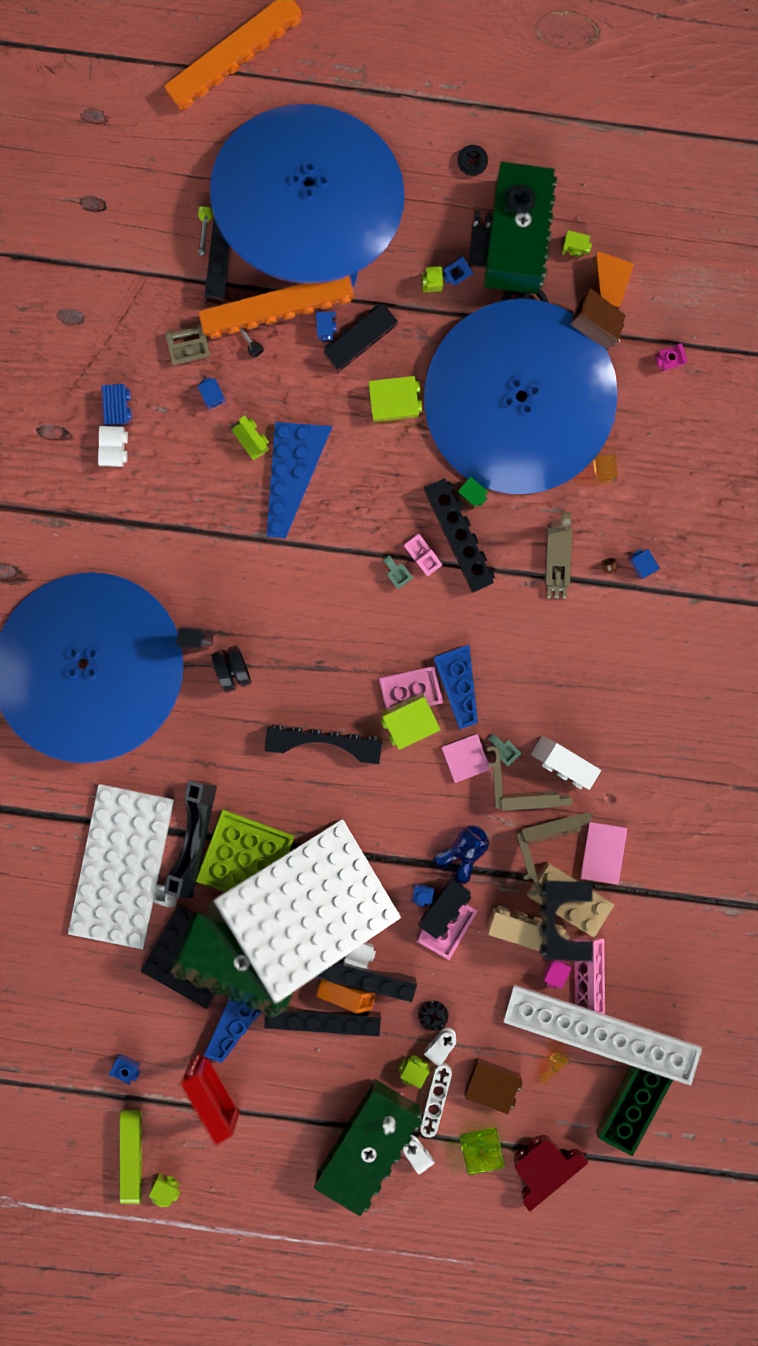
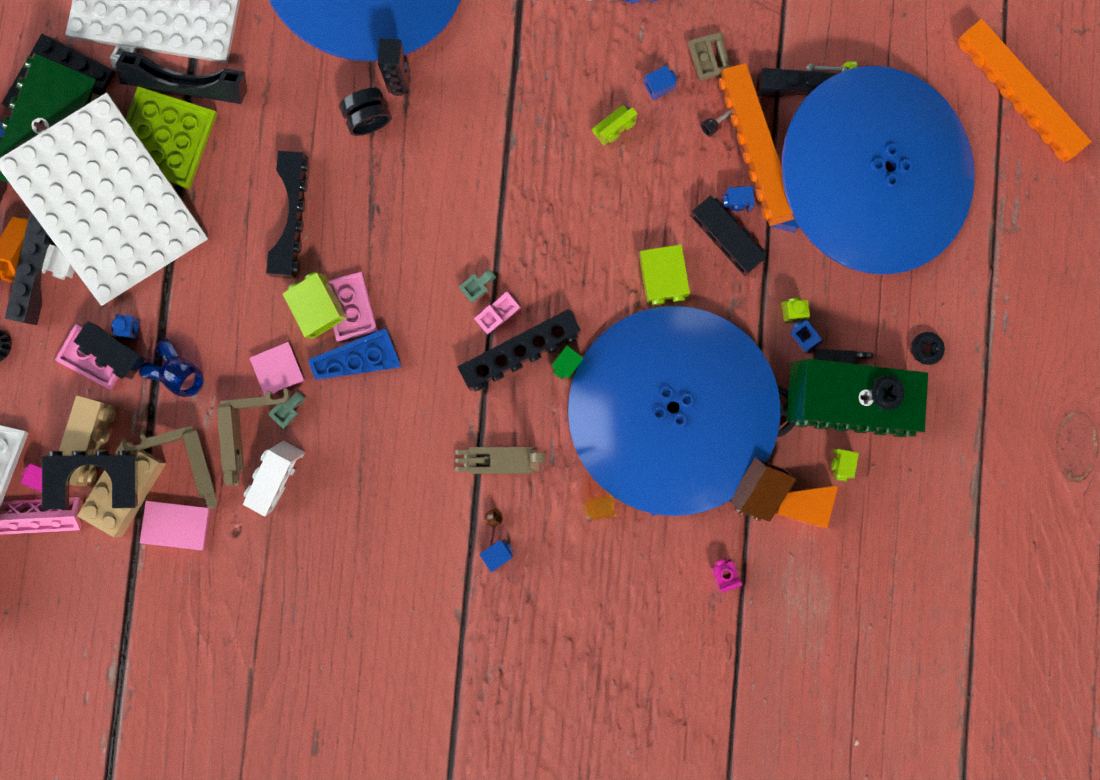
camera: 85 degrees right, 5 degrees down
(293, 464) = (589, 172): blue wing -> none

